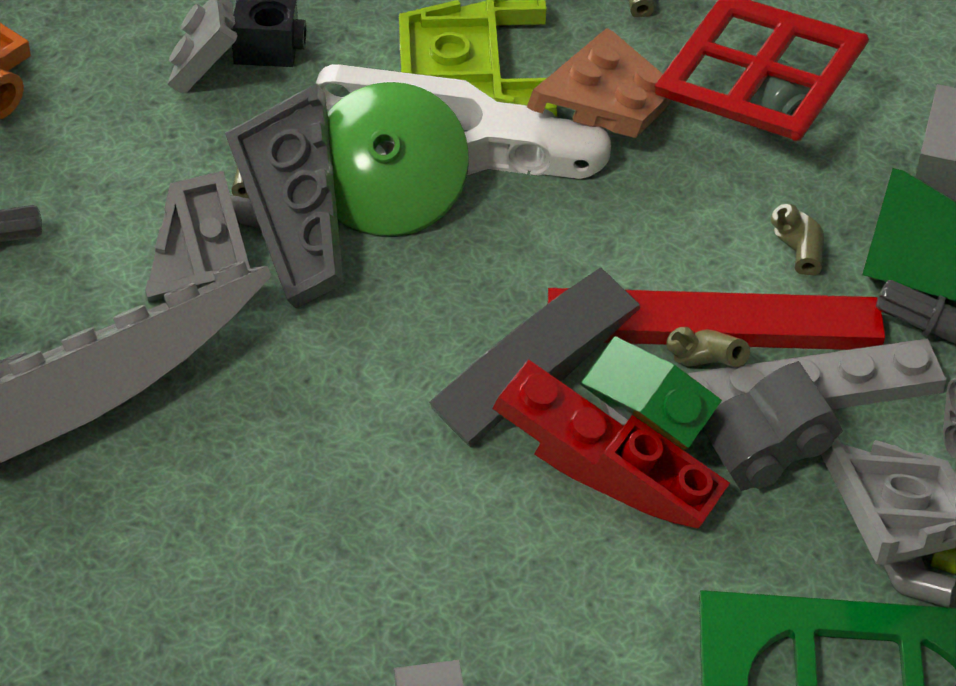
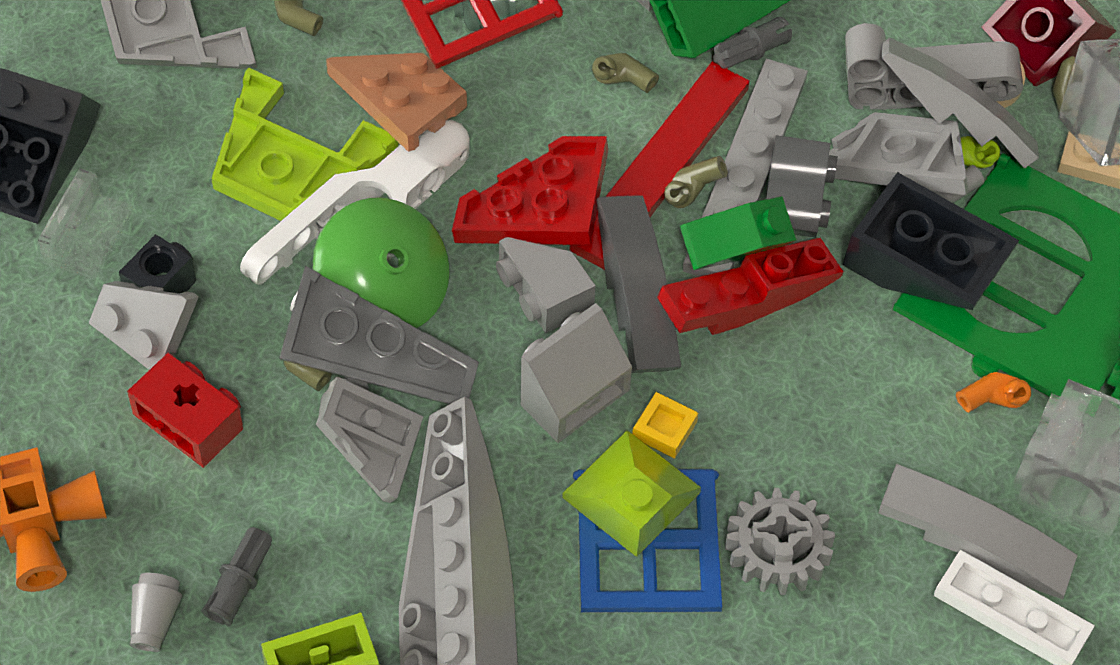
camera: 60 degrees left, 10 degrees up
(137, 112) = (186, 409): none -> red brick
(242, 514) = (650, 600): none -> blue window
(275, 469) = (631, 493): none -> lime slope
(303, 613) = (772, 560): none -> light grey gear
(373, 345) = (574, 373): none -> light grey slope
(383, 459) = (665, 425): none -> yellow plate
(478, 291) = (547, 280): none -> light grey slope
(569, 242) = (539, 199): none -> red plate
(790, 567) = (927, 246): none -> black slope

